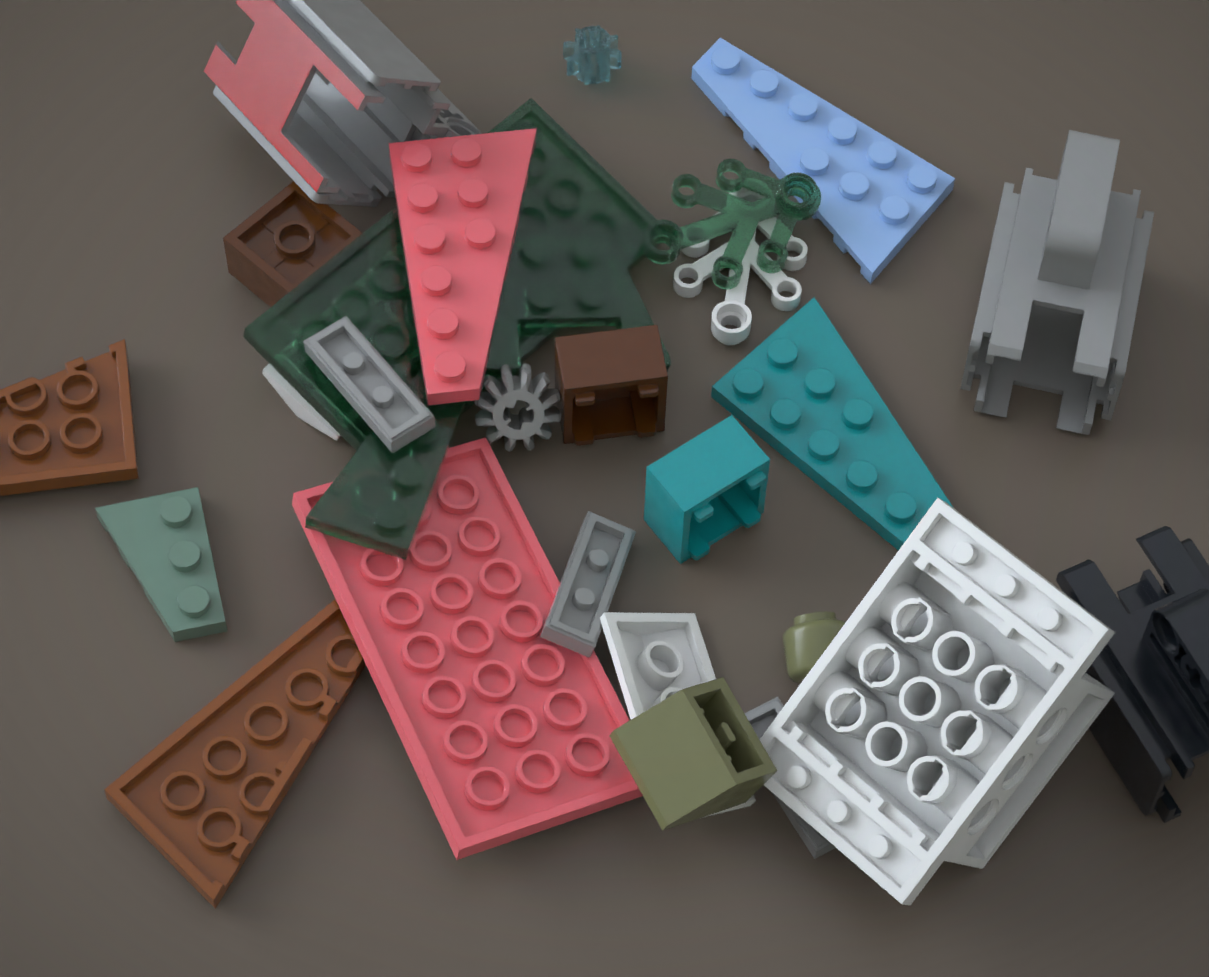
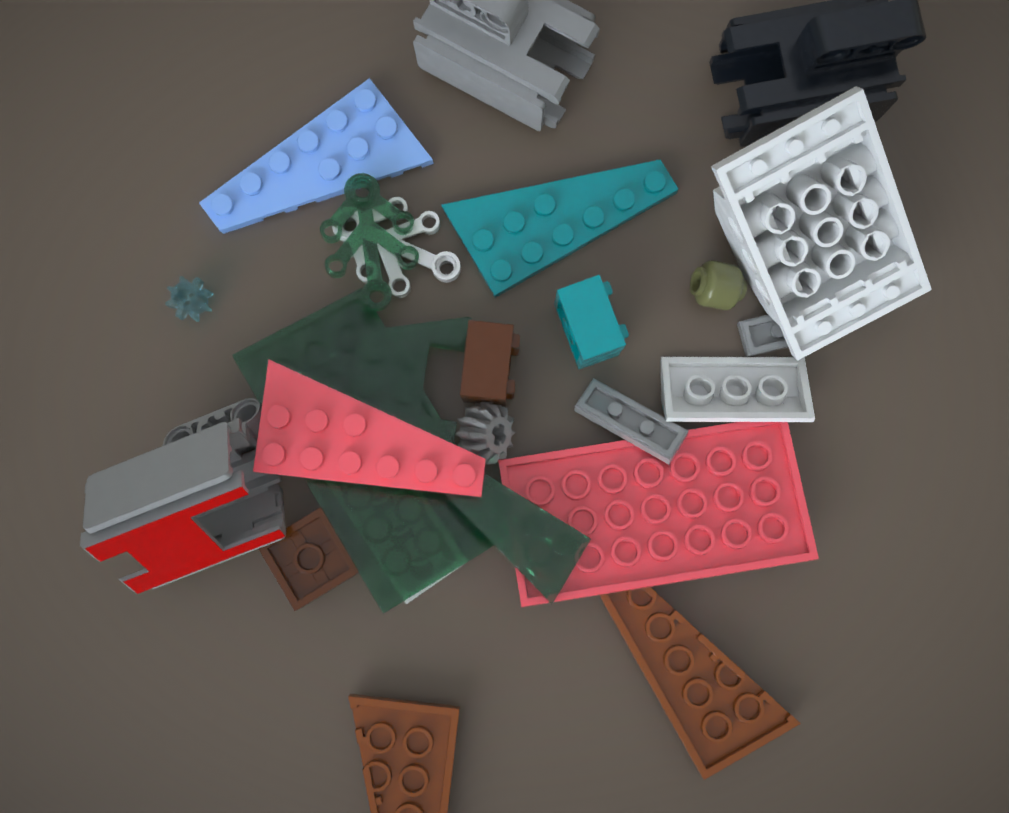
camera: 70 degrees left, 25 degrees up
(171, 557) = (530, 696): sand green wing -> none
(369, 384) = (455, 535): light grey tile -> none
(694, 754) = (797, 389): olive slope -> none

